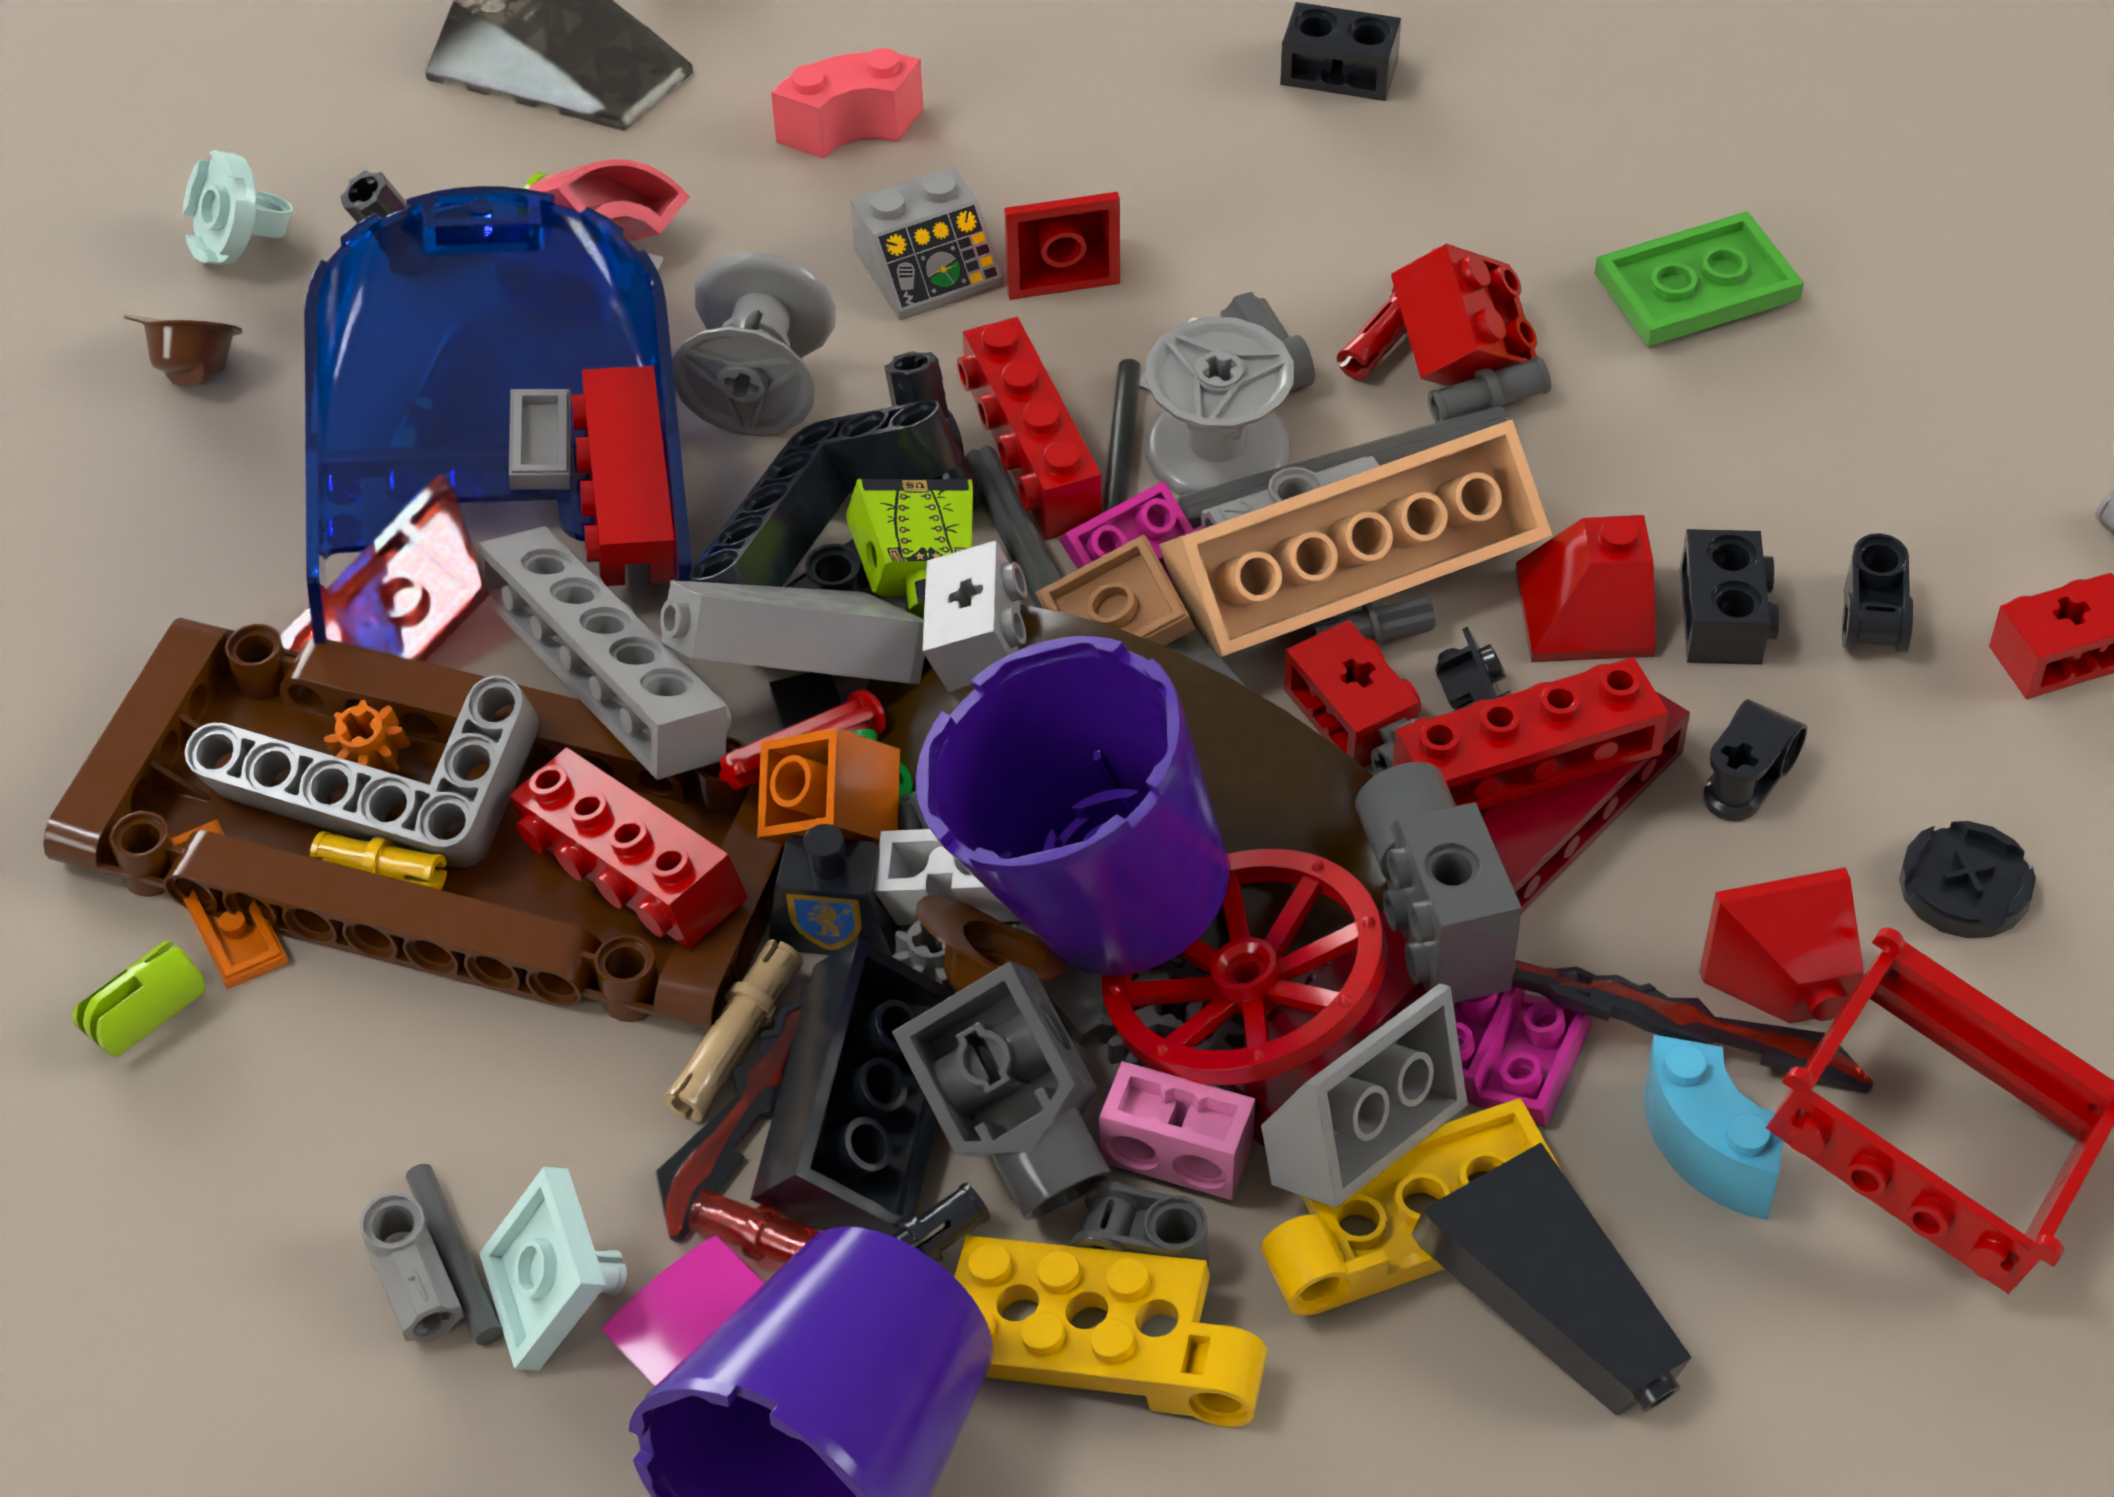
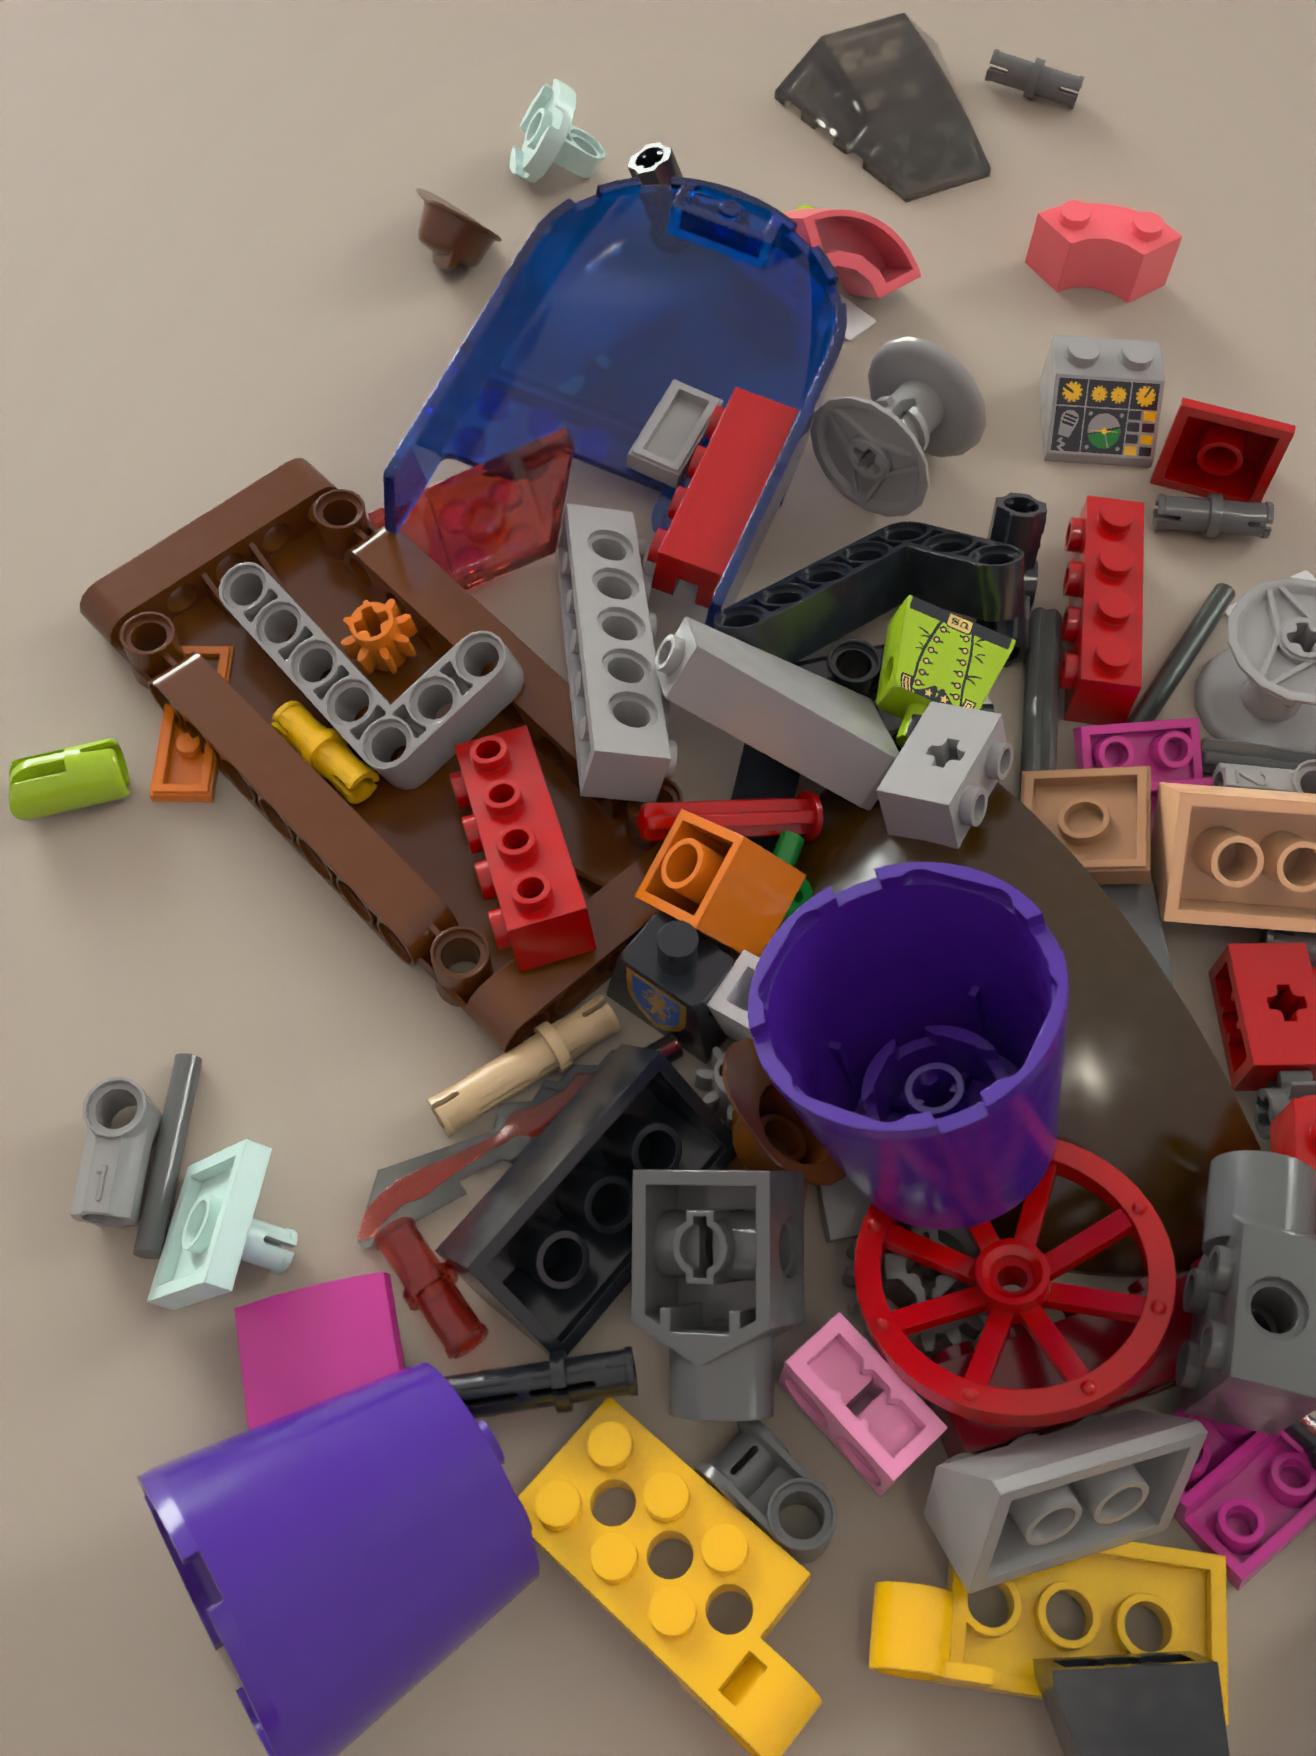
camera: 25 degrees right, 10 degrees up
(1083, 304) = (1213, 516): none -> dark grey pin

